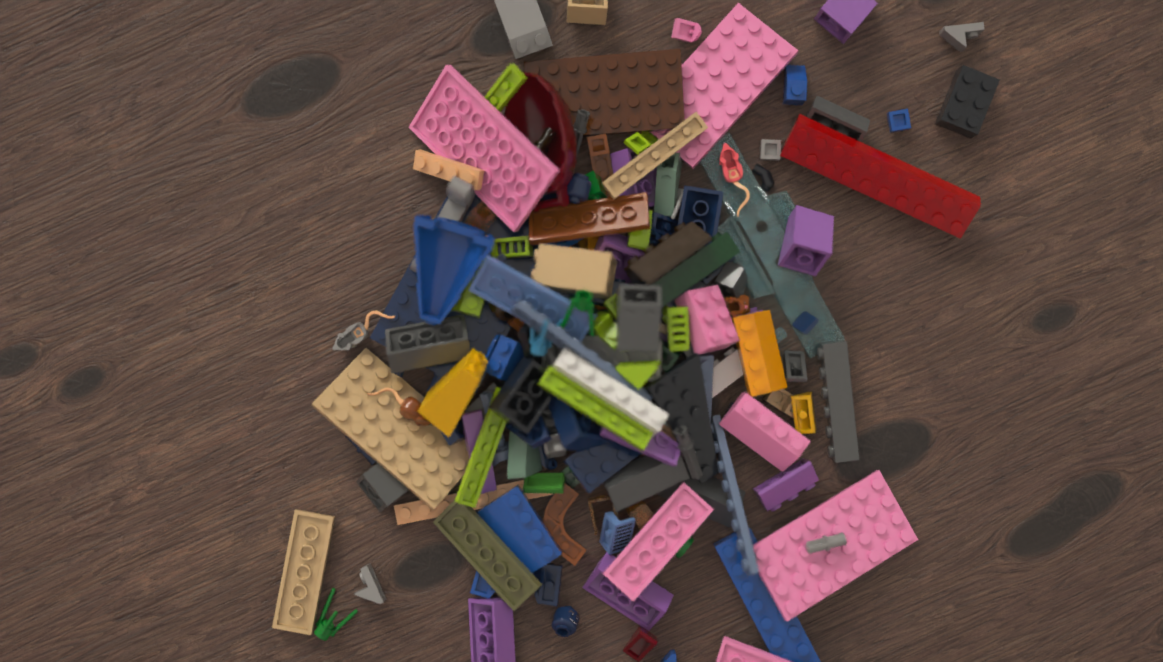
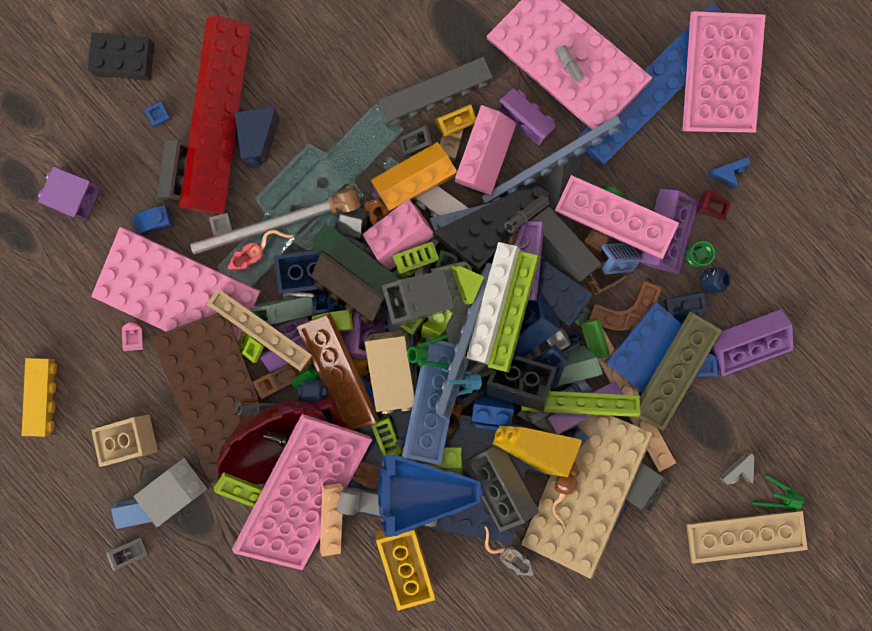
camera: 110 degrees left, 0 degrees up
(378, 227) = (406, 568): none -> yellow brick
(595, 614) = (700, 254): none -> green wheel
(756, 278) = (345, 200): none -> flat silver piece
(766, 175) = (249, 219): black arm -> none
(805, 323) = (372, 143): dark blue slope -> none
(807, 241) = (296, 164): medium lavender slope -> none
(850, 210) = (256, 134): none -> dark blue slope
(957, 34) = (60, 83): light grey slope -> none

